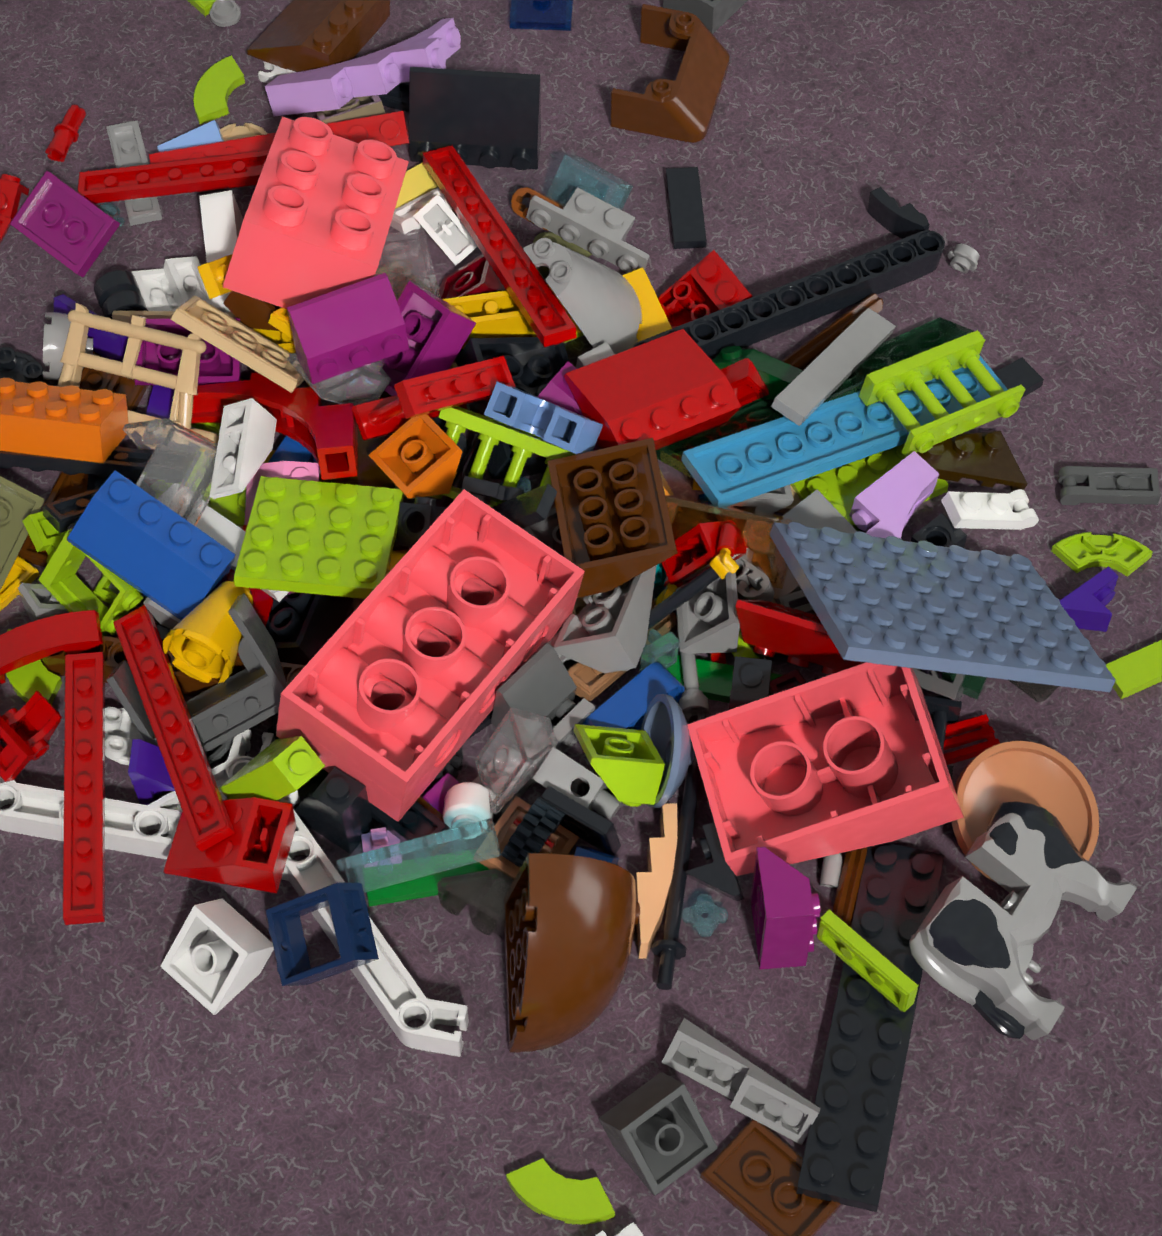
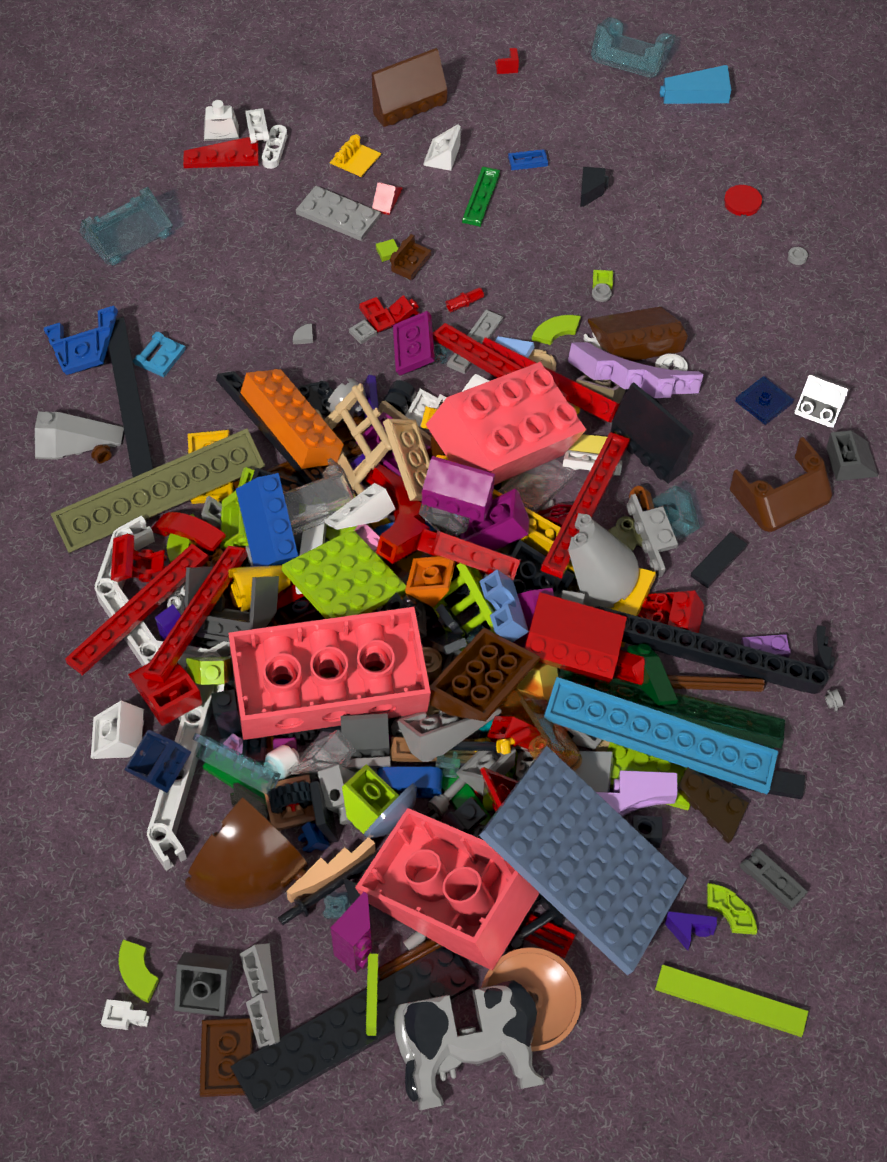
camera: 45 degrees right, 0 degrees up
(401, 28) = (666, 361): none -> white gear
(445, 229) = (579, 470): white slope -> none
(832, 366) = (688, 697): light grey tile -> none
(840, 249) = (772, 644): none -> medium lavender plate
(938, 364) = (740, 740): lime fence -> none
(990, 510) = (691, 837): white plate -> none

